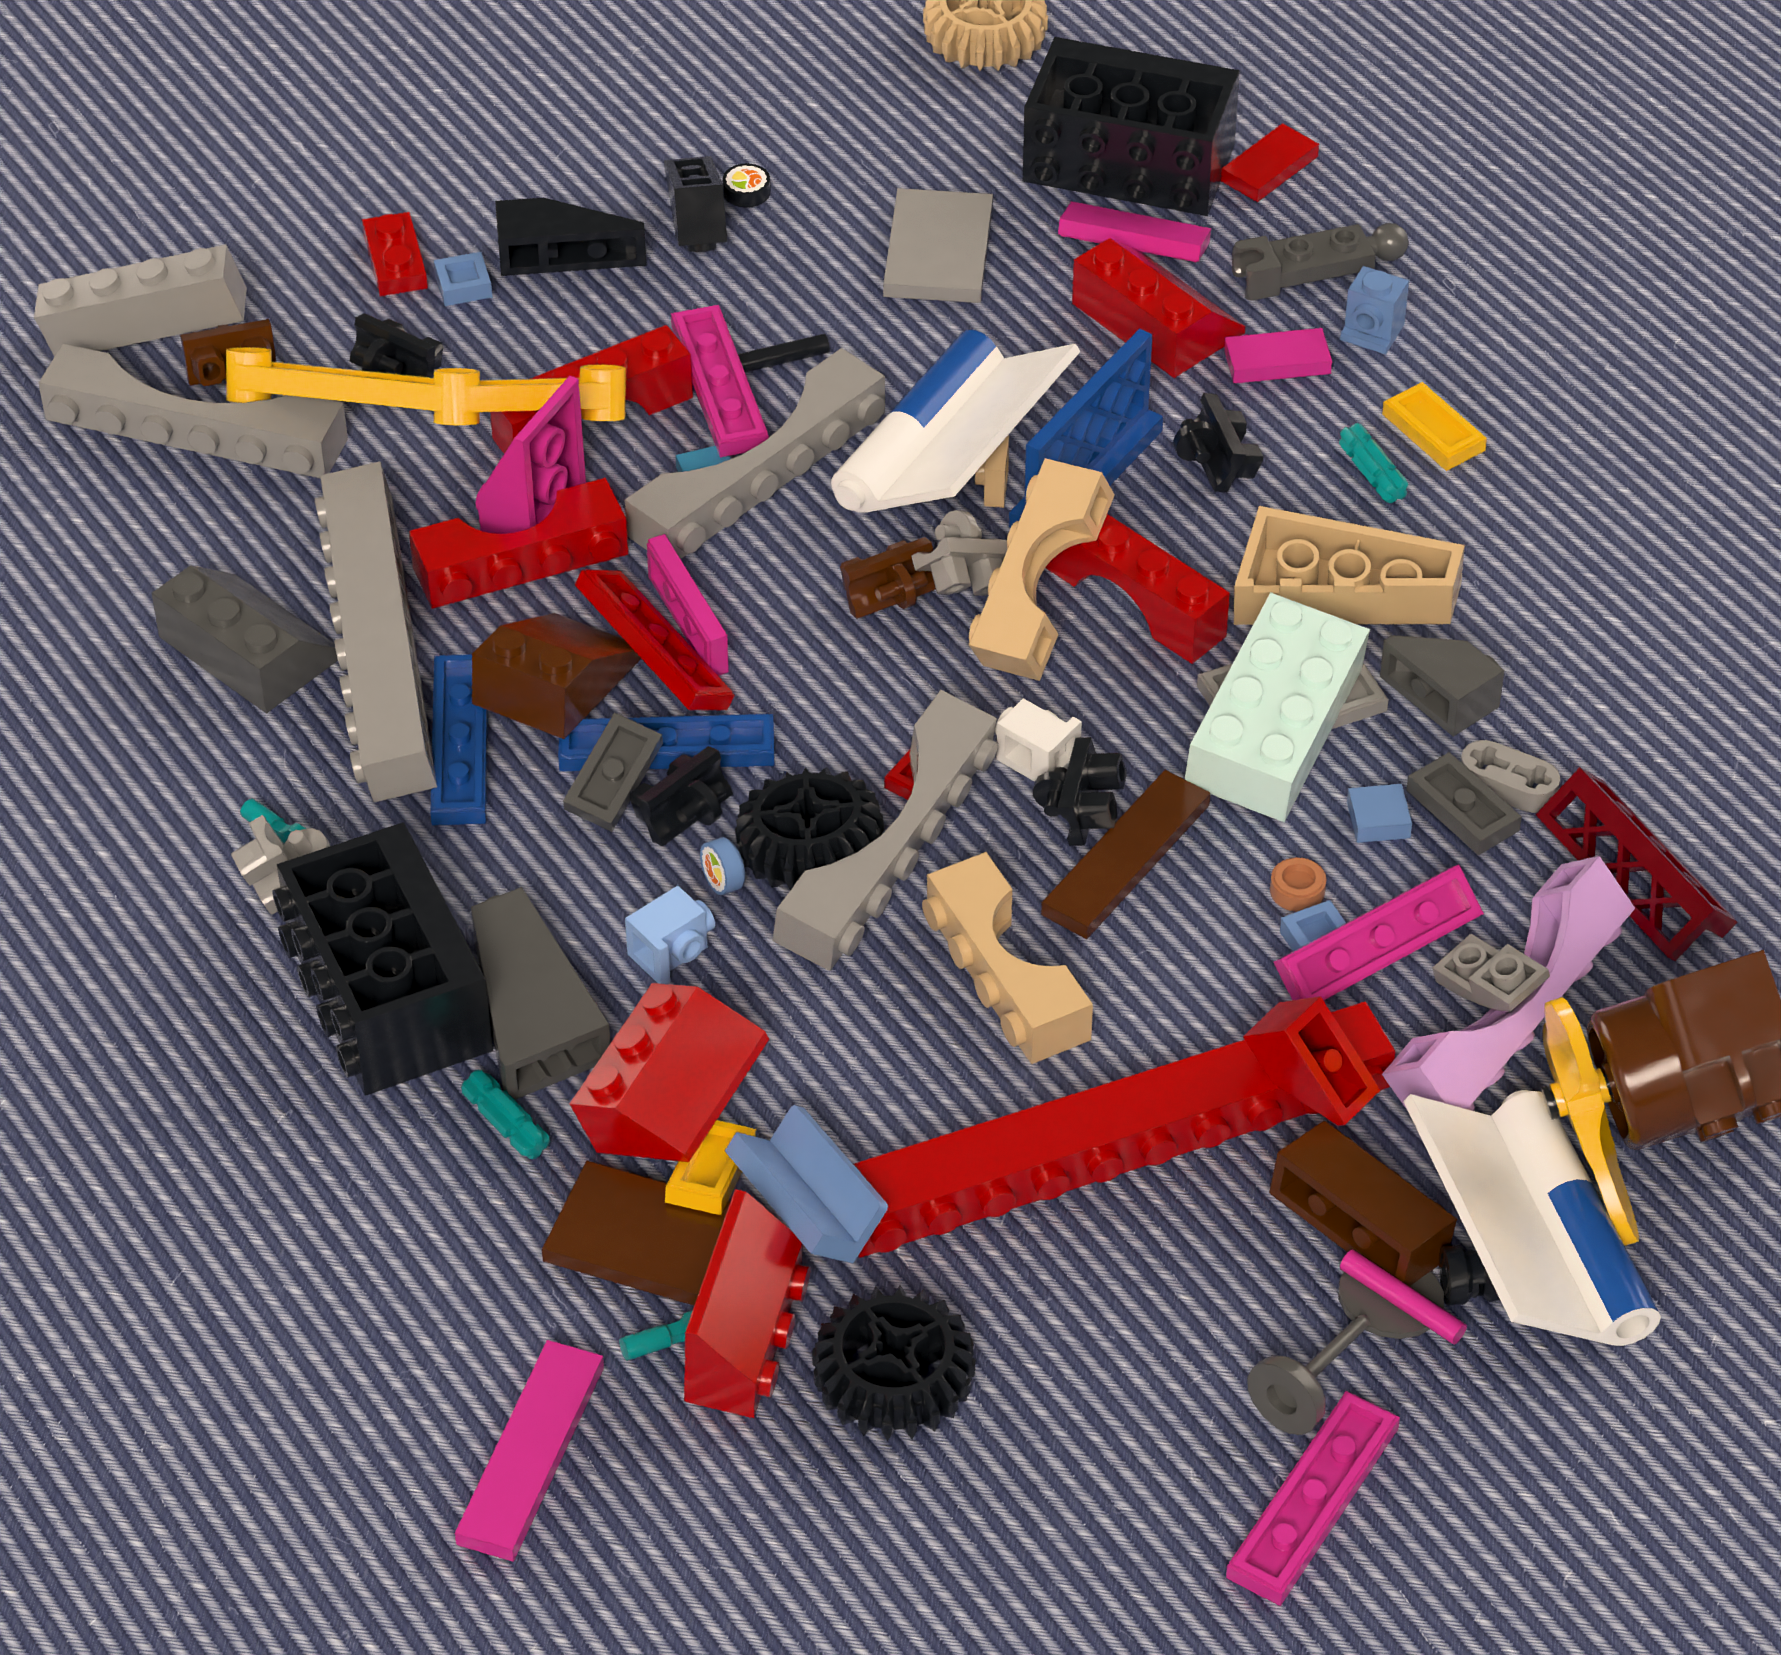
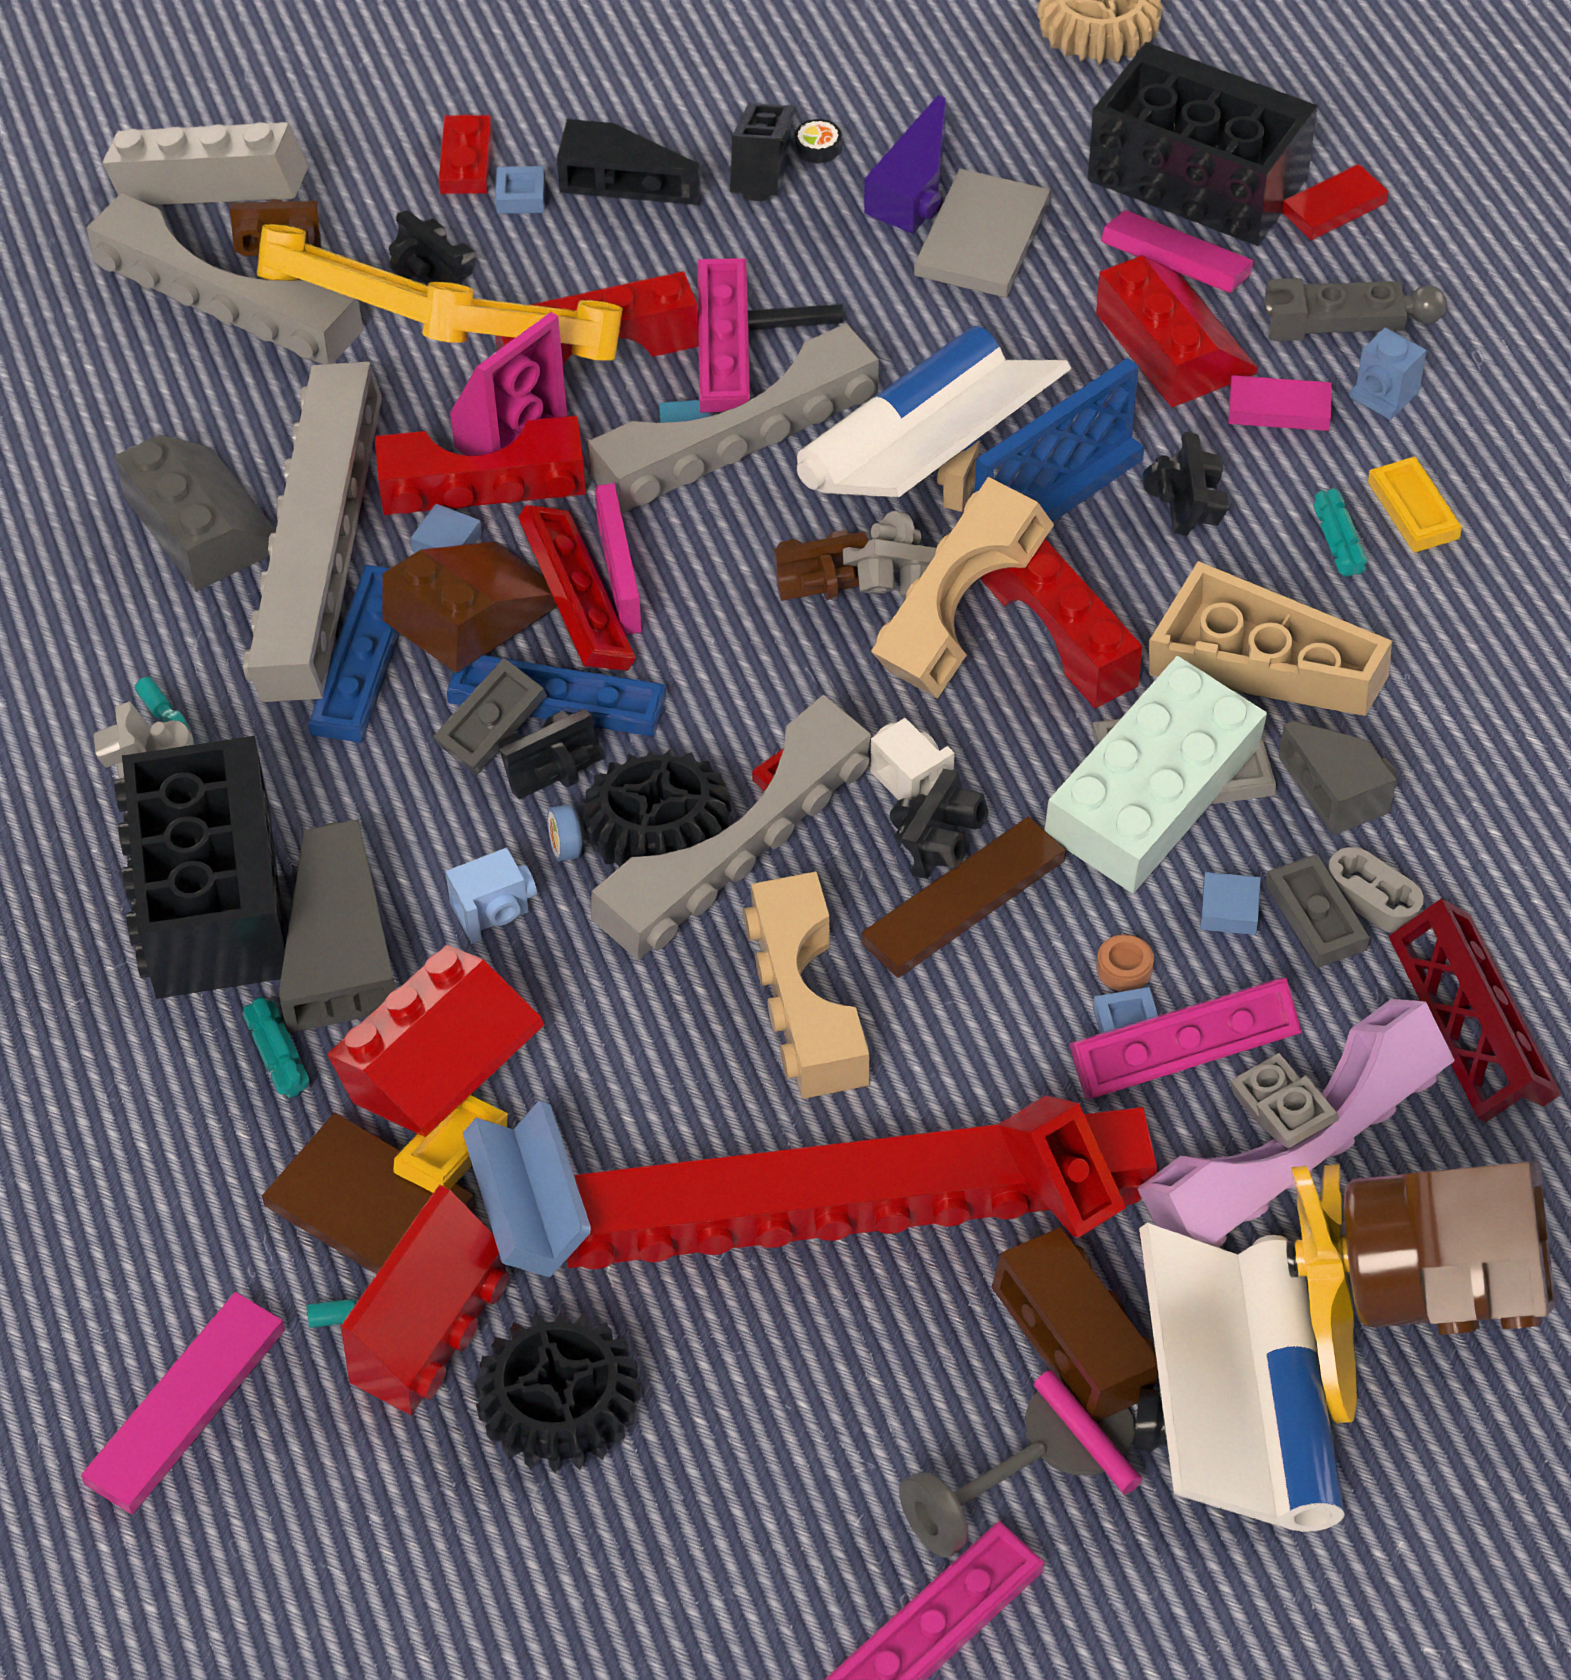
camera: 15 degrees right, 5 degrees up
(500, 608) = (445, 528): none -> medium blue tile
(851, 205) = (907, 178): none -> dark purple slope

